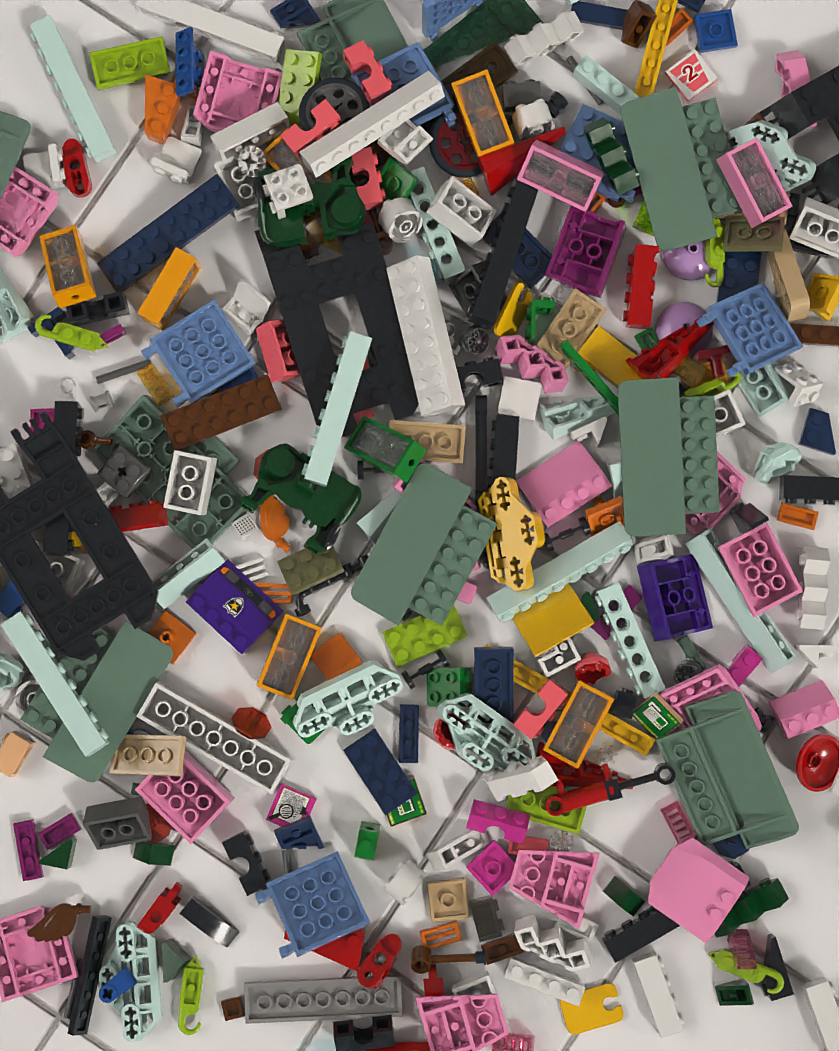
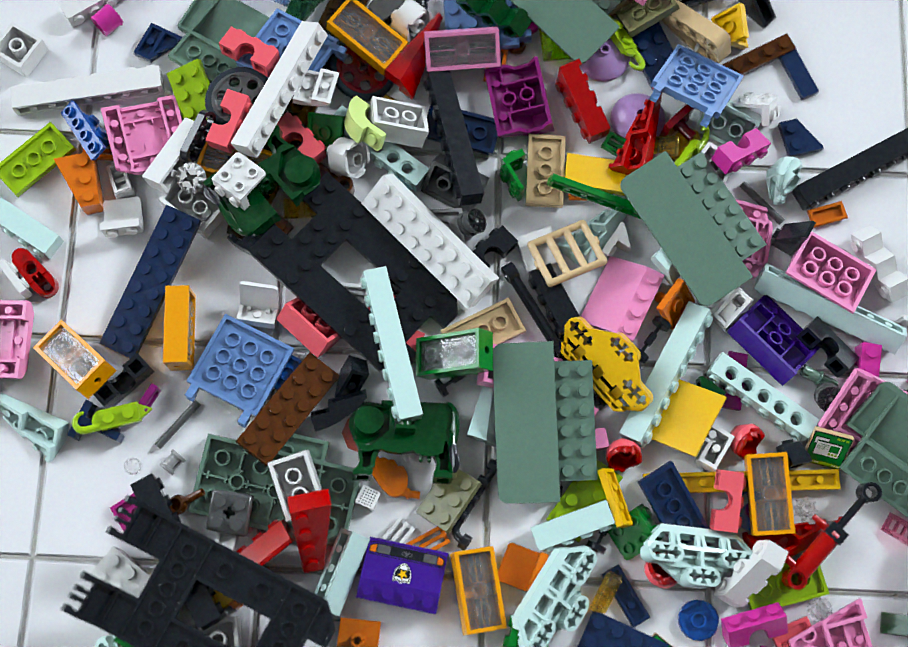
camera: 40 degrees left, 10 degrees down
(155, 384) = (214, 419): clear yellow slope -> none
(179, 521) = (310, 524): none -> red wedge
(261, 437) = (337, 409): none -> black slope
(279, 119) = (191, 137): none -> black beam
(289, 417) = (352, 376): none -> black slope
(392, 721) = (606, 592): none -> clear yellow slope
(397, 650) = (572, 525): none -> light aqua brick
(422, 197) = (360, 128): none -> yellowish green arch
(447, 649) = (615, 497): none -> yellow tile
(456, 789) = (698, 620): none -> blue tile
(478, 618) = (623, 454): none -> red hair
(513, 311) = (490, 181): yellow piece -> none
(532, 362) = (532, 212): bright pink brick -> none
(544, 439) = (566, 232): none -> tan bar
(722, 644) = (839, 355): none -> black arch
(737, 418) = (750, 147): none -> dark pink arch
(745, 471) = (760, 201): none -> dark grey piece

